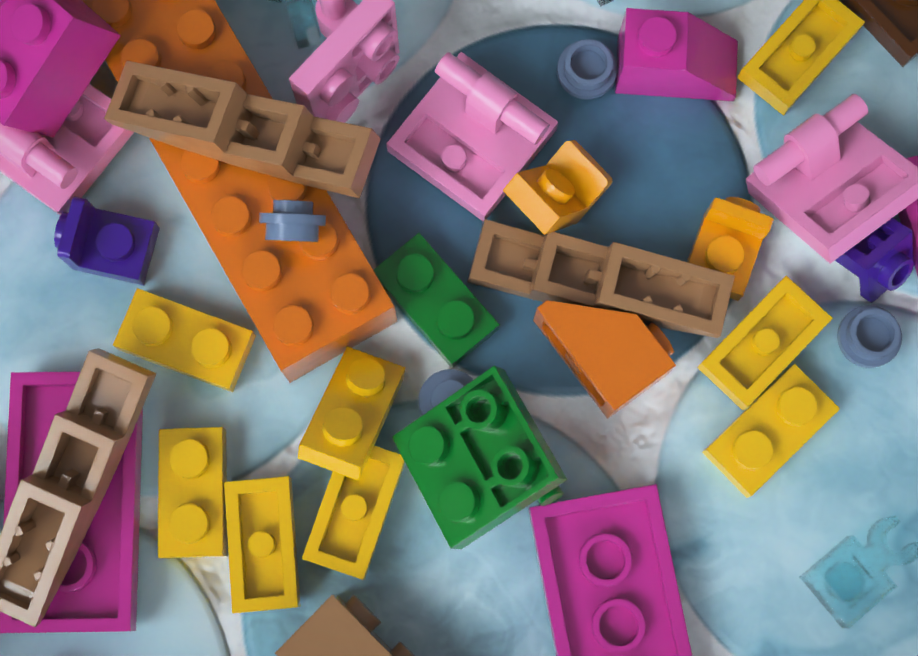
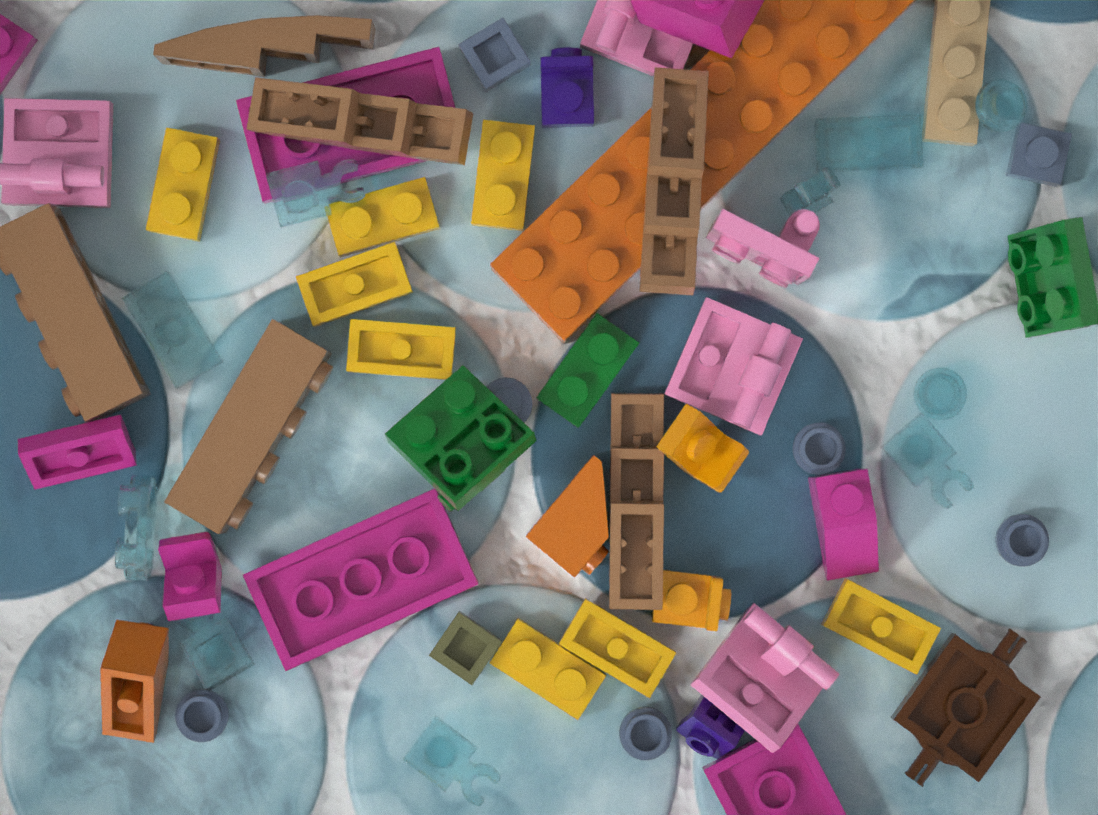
camera: 75 degrees right, 10 degrees up
(41, 313) = (494, 54): none -> sand blue plate
(133, 576) = (305, 193): none -> clear light blue plate
(292, 221) = (605, 243): sand blue plate -> none
(351, 413) = (475, 328): yellow plate -> none
(727, 519) = (465, 648): none -> olive plate

